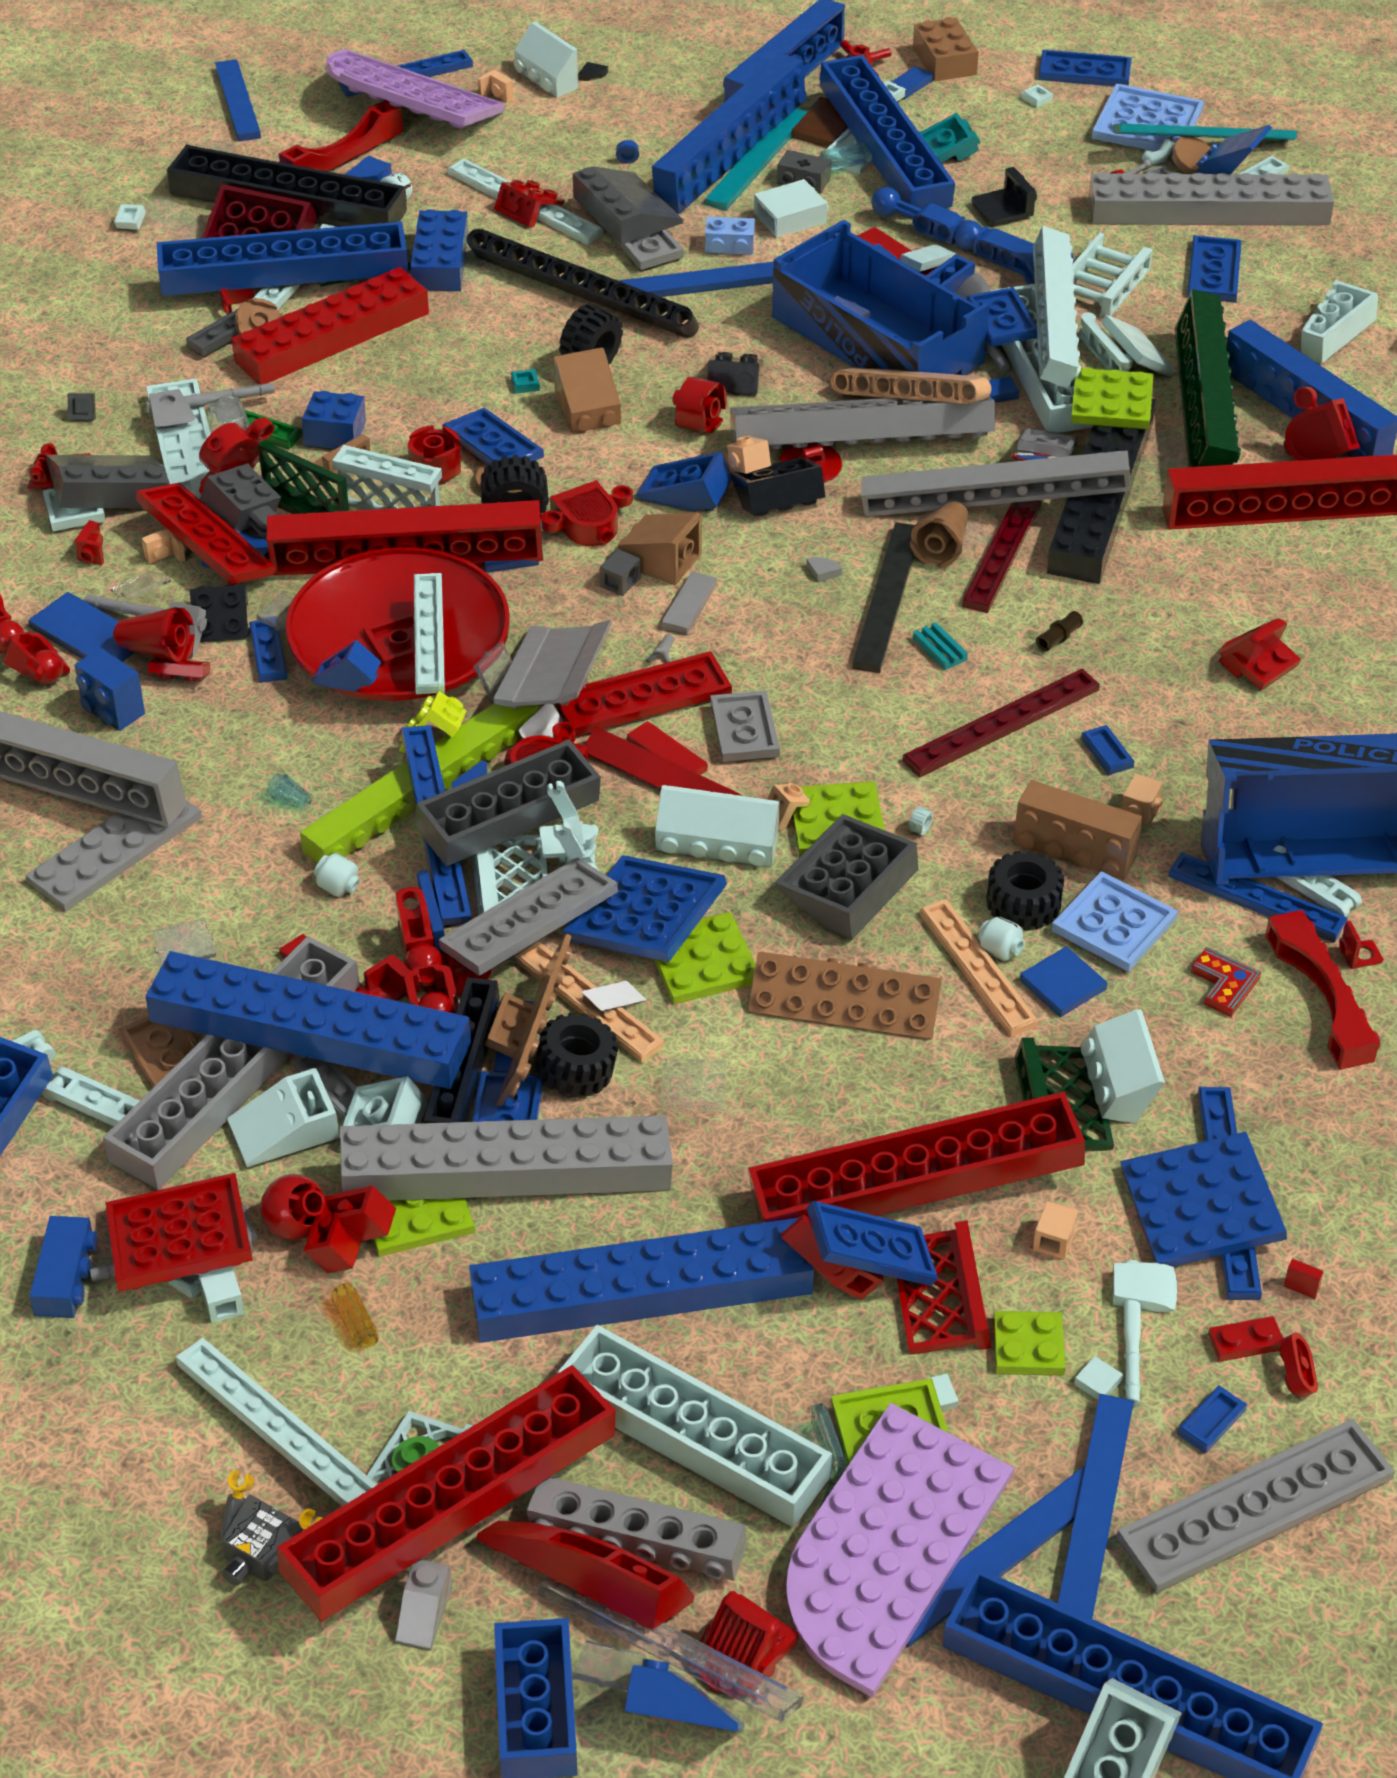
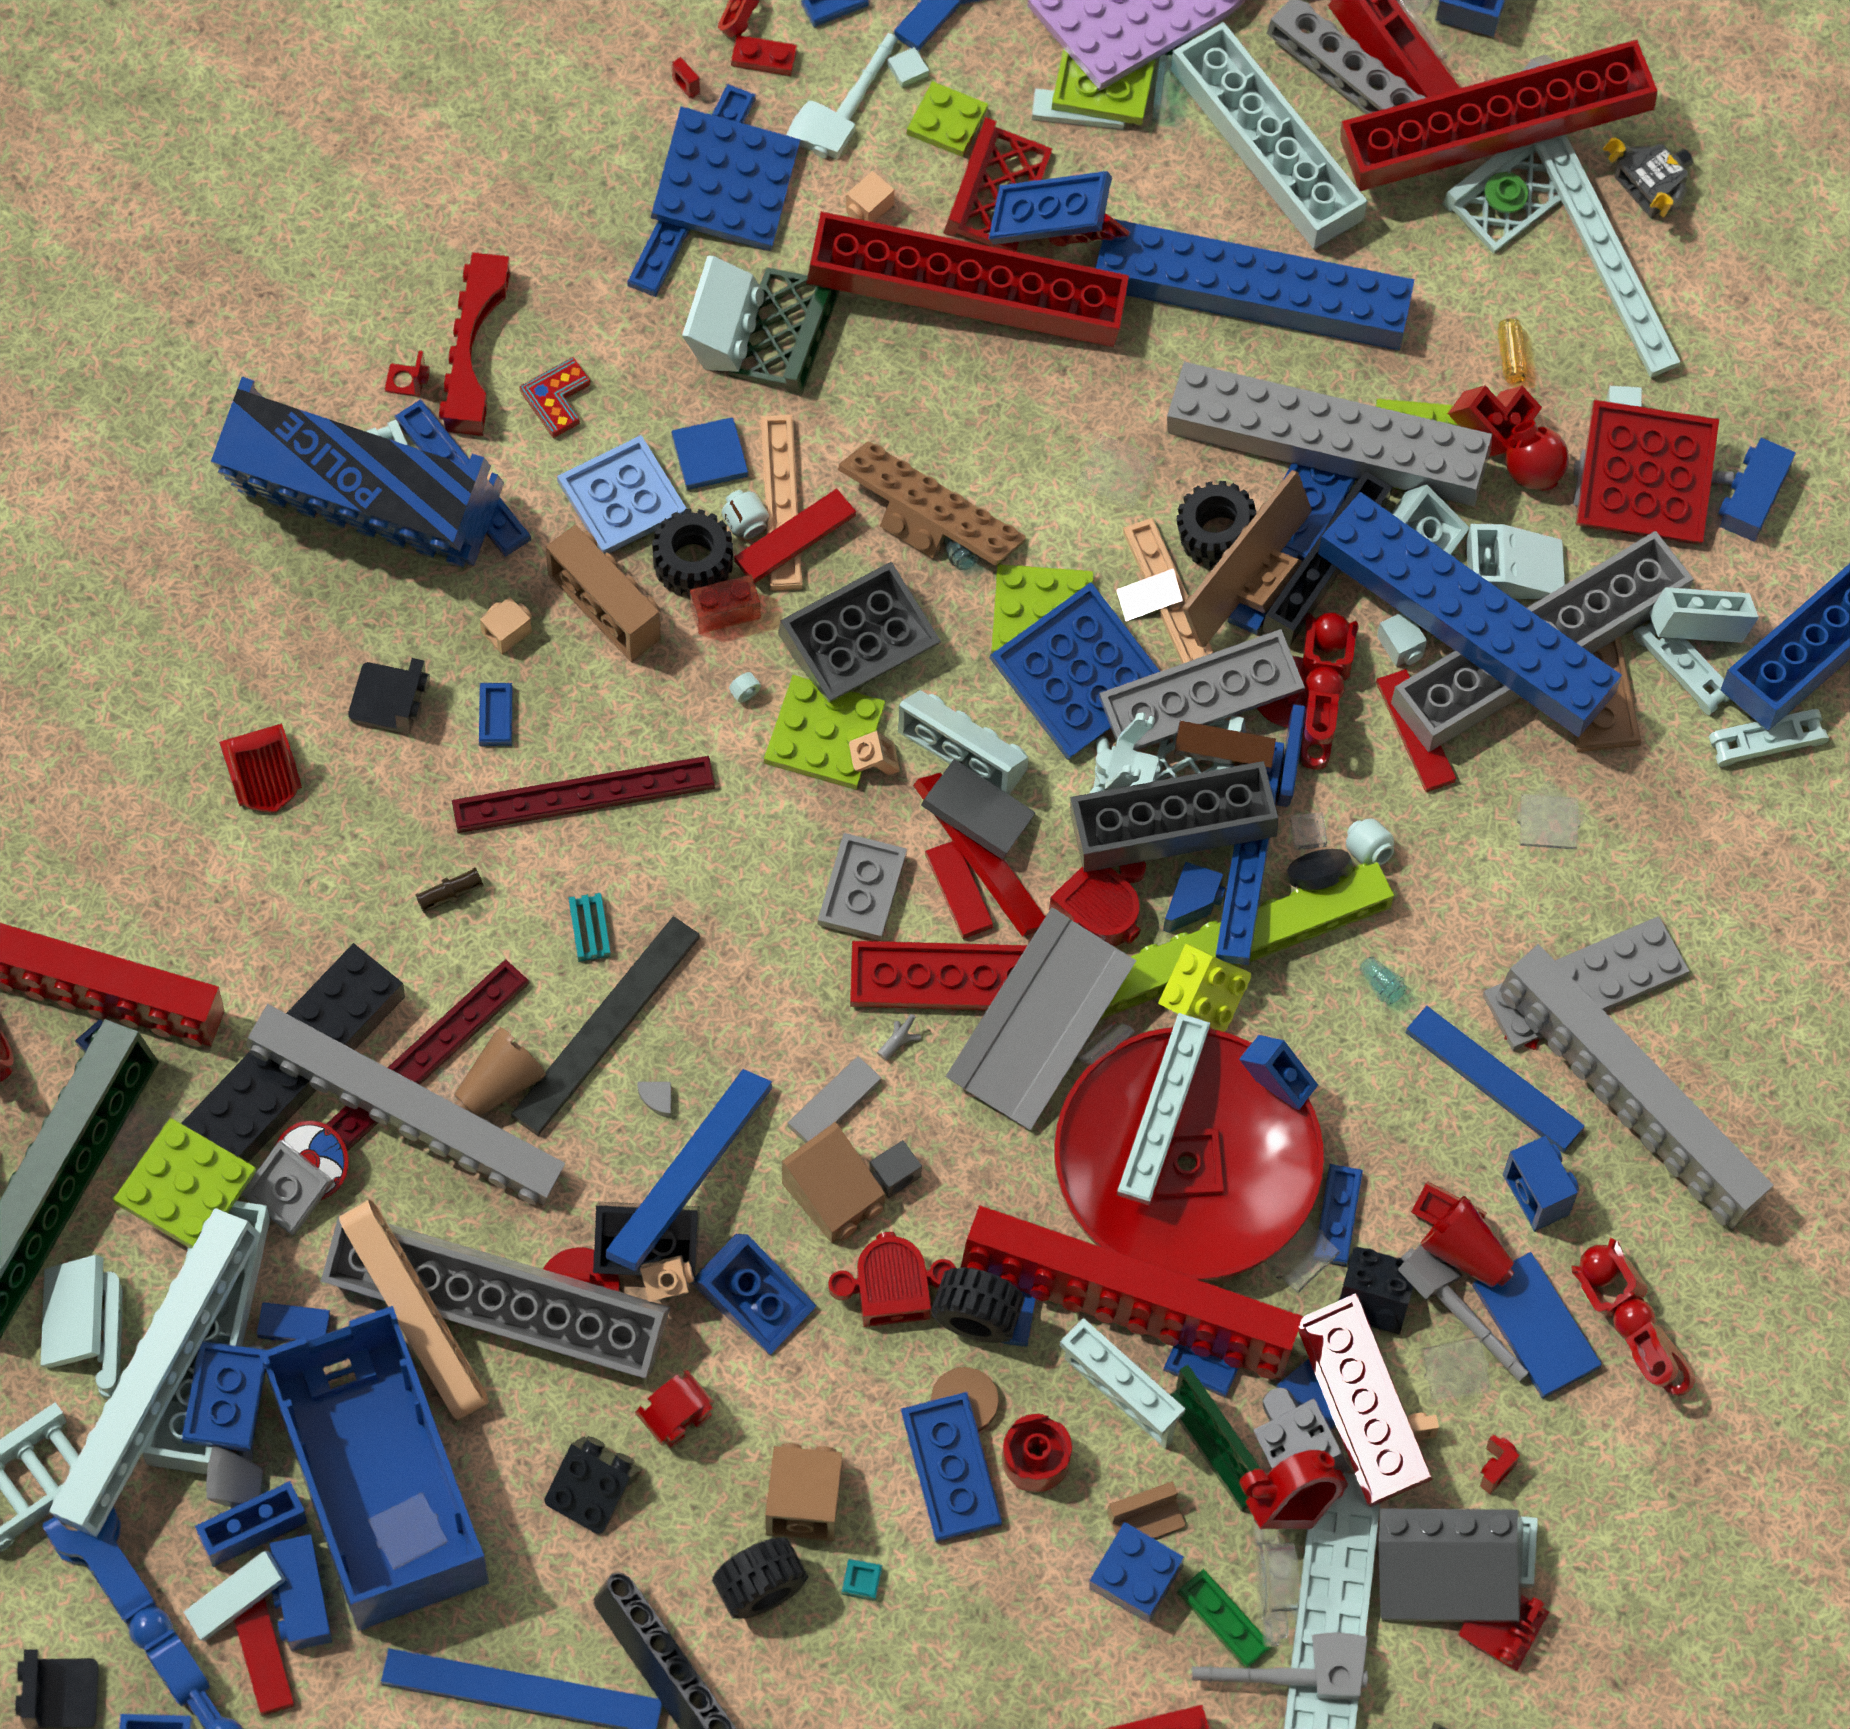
camera: 160 degrees left, 20 degrees up
(83, 1118) = (1703, 615): none -> light aqua brick
(197, 768) = (1494, 1078): none -> blue tile
(371, 835) = (1320, 869): none -> black tile
(387, 978) = (1362, 693): red panel -> none
(394, 870) = (1308, 831): none -> clear plate
(490, 878) = (1223, 745): none -> reddish brown tile
(652, 777) = (978, 809): none -> dark grey tile
(768, 509) = (688, 1170): none -> blue tile
(947, 932) = (795, 535): none -> red tile
(970, 865) = (725, 604): none -> clear red brick
(1193, 728) = (389, 696): none -> black bracket

